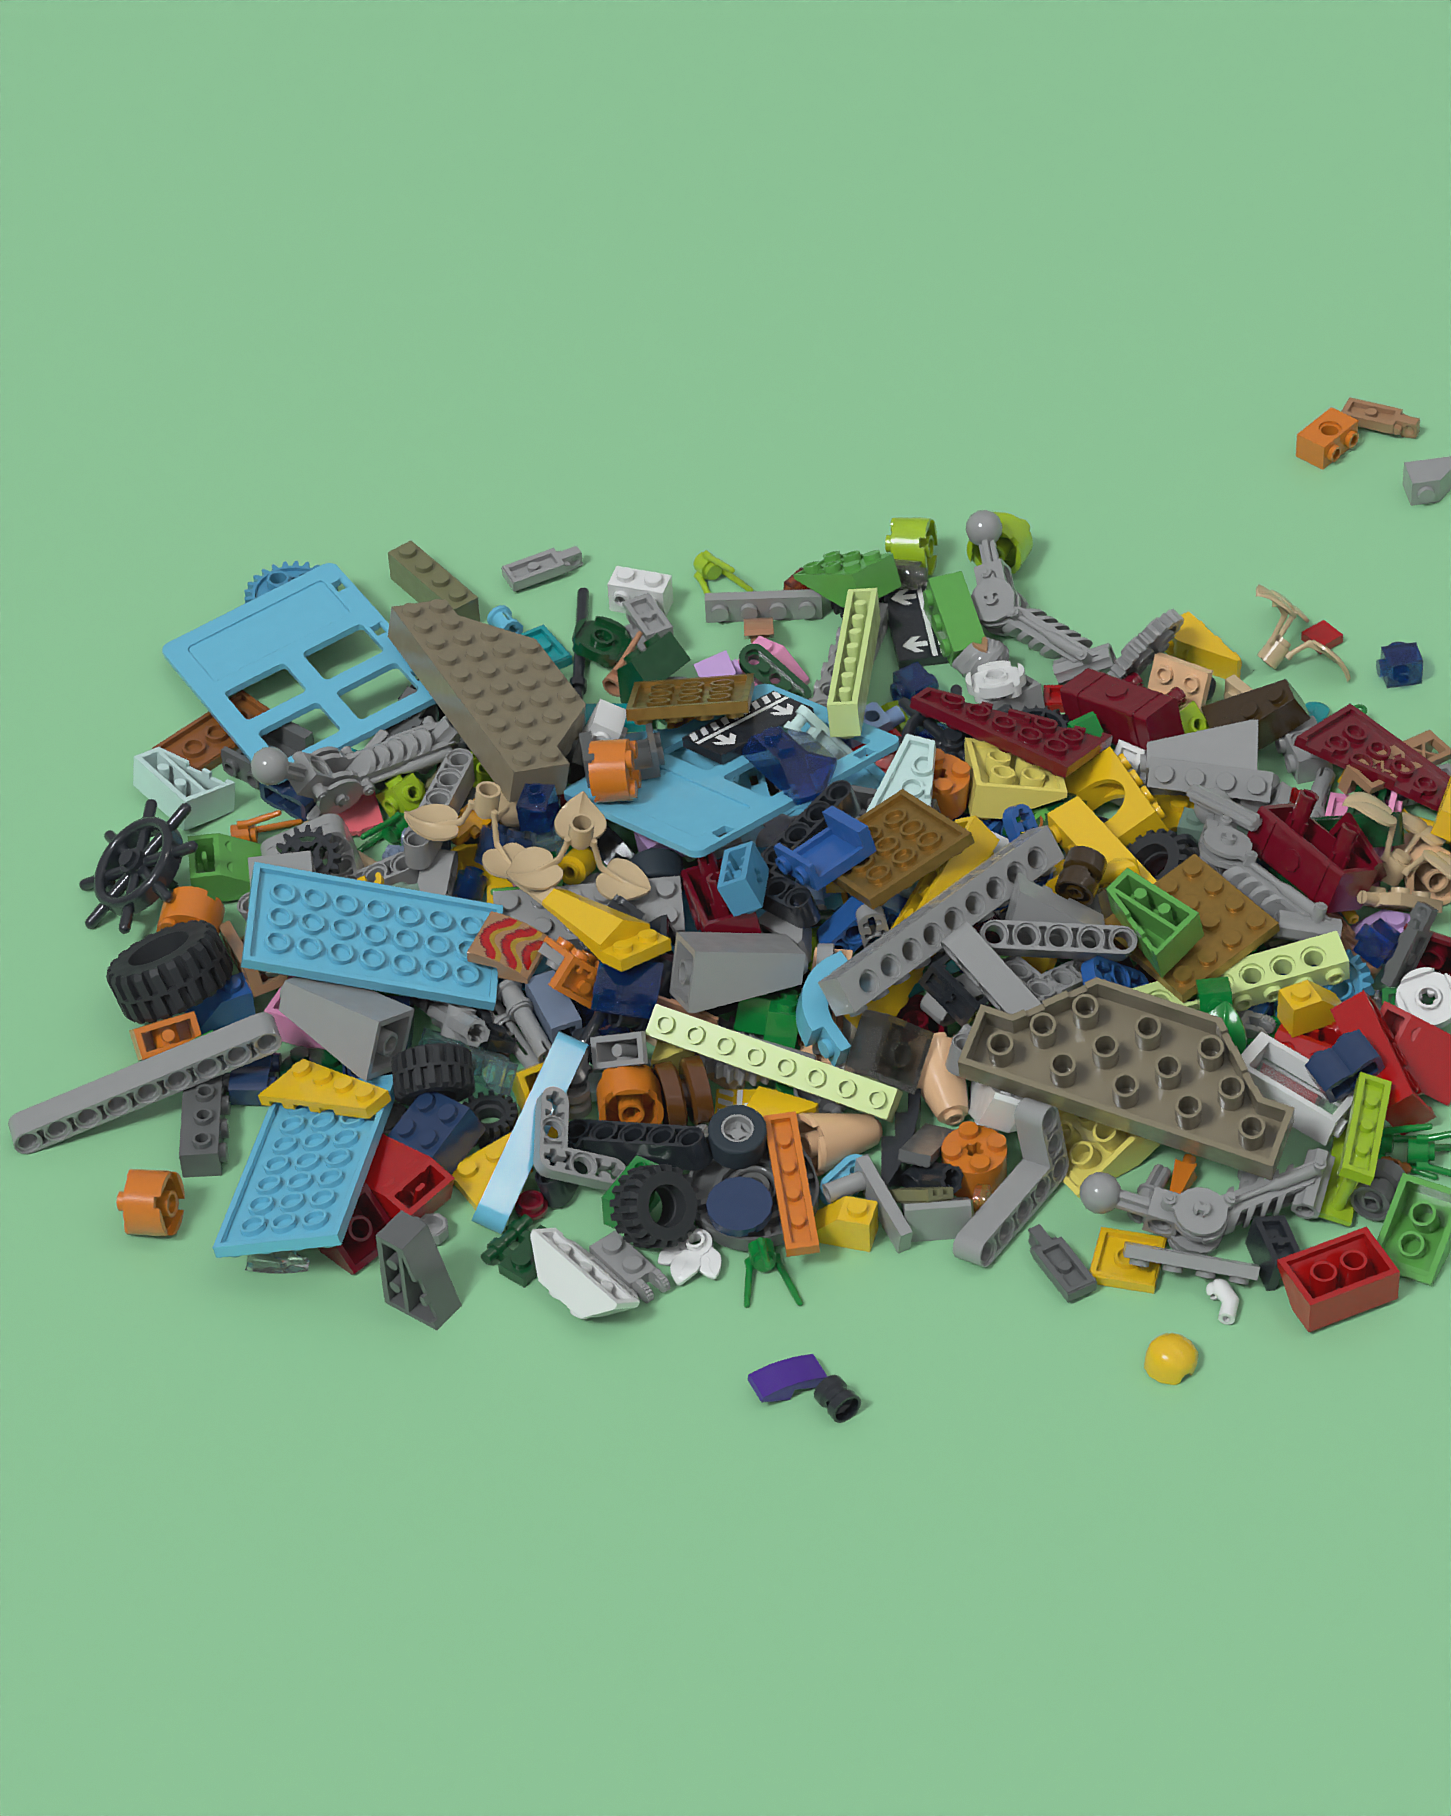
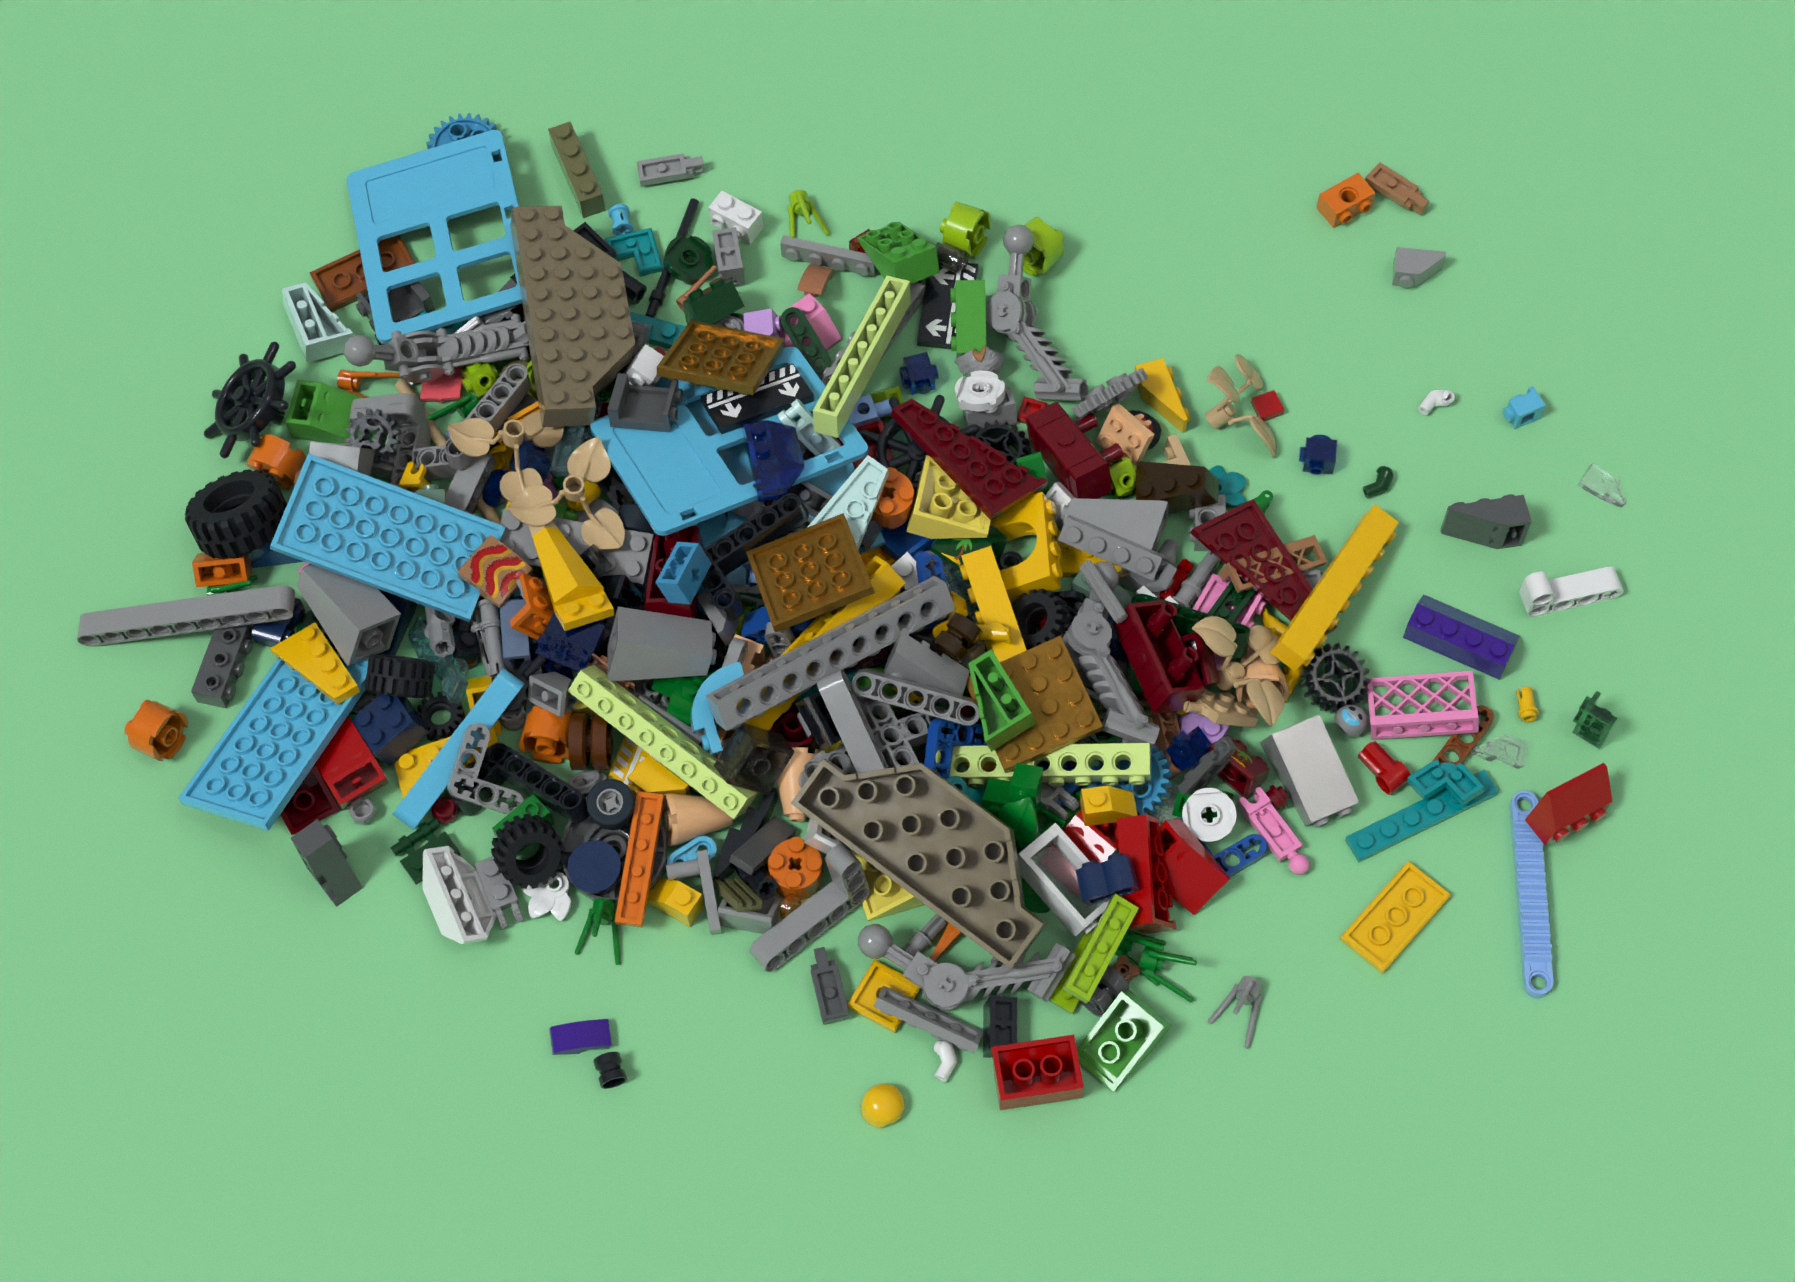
camera: 15 degrees right, 20 degrees up
(537, 807) = (560, 440): clear blue brick -> none
(613, 770) = (625, 427): orange brick -> none
(828, 852) = (758, 564): blue panel -> none

